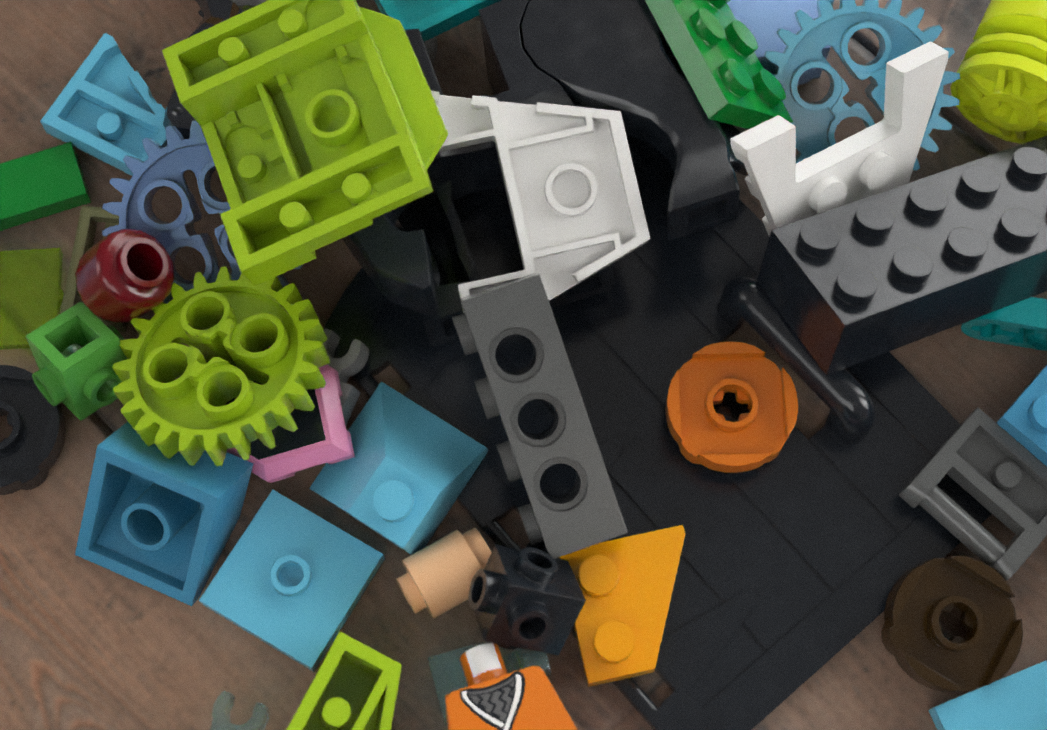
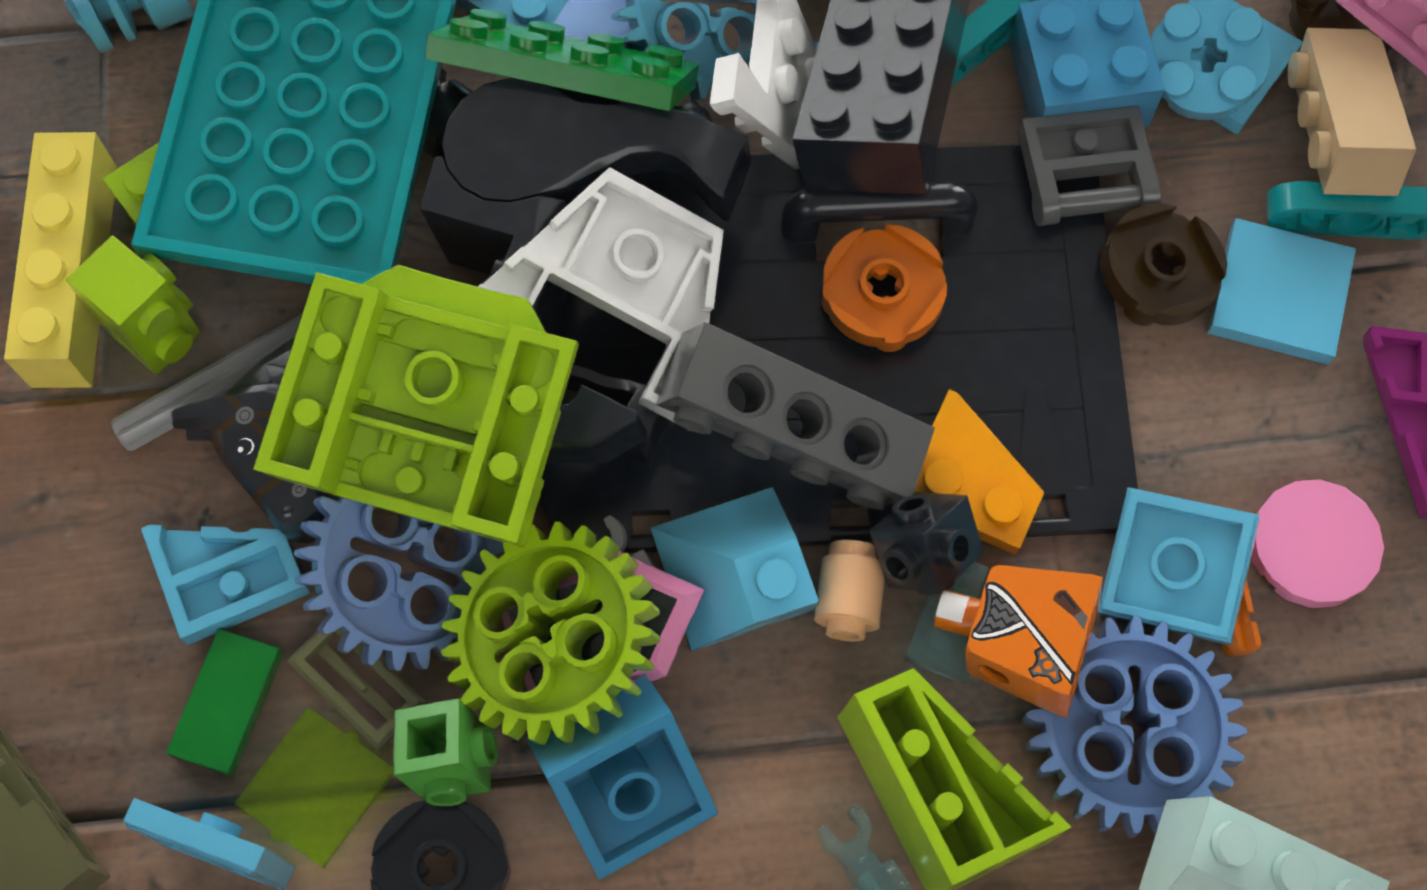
camera: 50 degrees left, 0 degrees up
(124, 275) = (408, 655): dark red head -> none
(292, 580) = (759, 717): medium azure plate -> none

